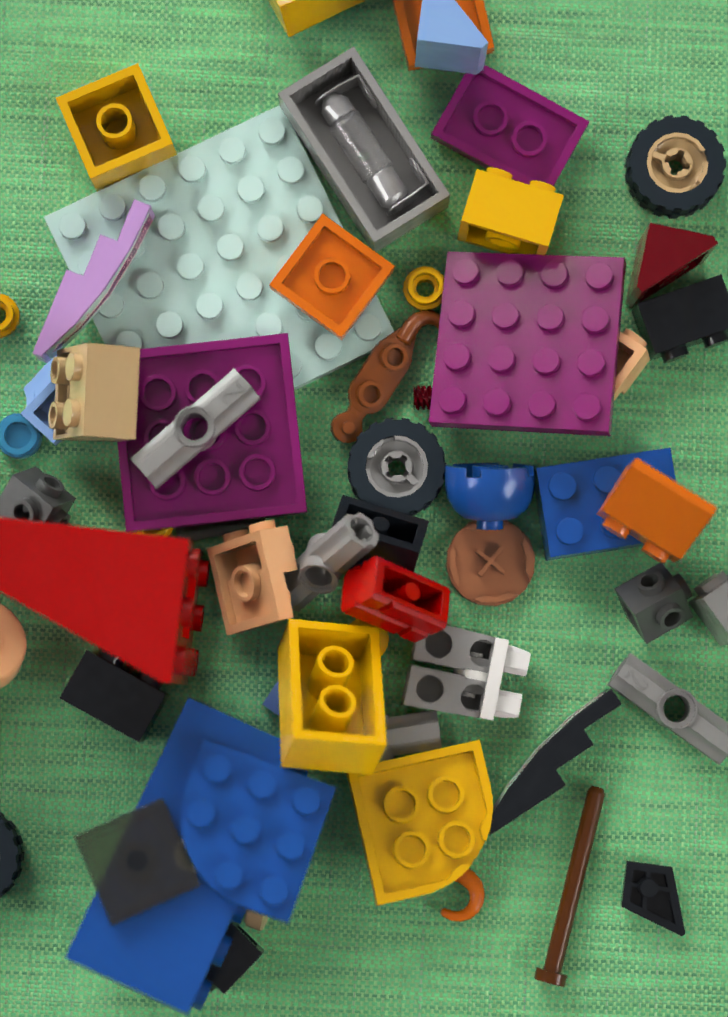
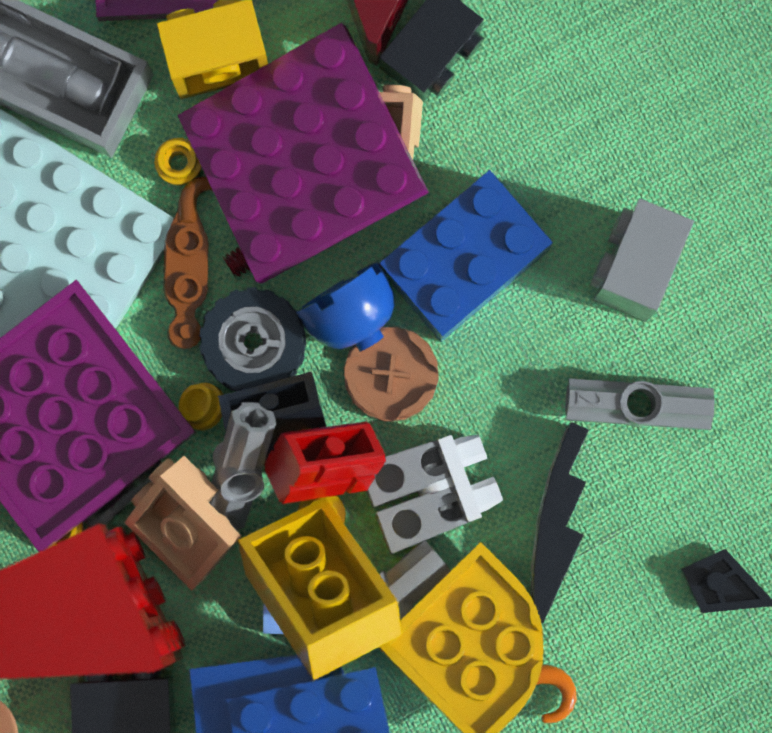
camera: 30 degrees left, 0 degrees up
(218, 407) = (53, 386): light grey piece -> none
(324, 494) = (201, 406): none -> yellow plate
(332, 276) = (85, 202): orange plate -> none
(572, 889) = (648, 626): reddish brown bar -> none
(655, 512) = (511, 236): orange slope -> none
(655, 602) = (562, 318): dark grey brick -> none

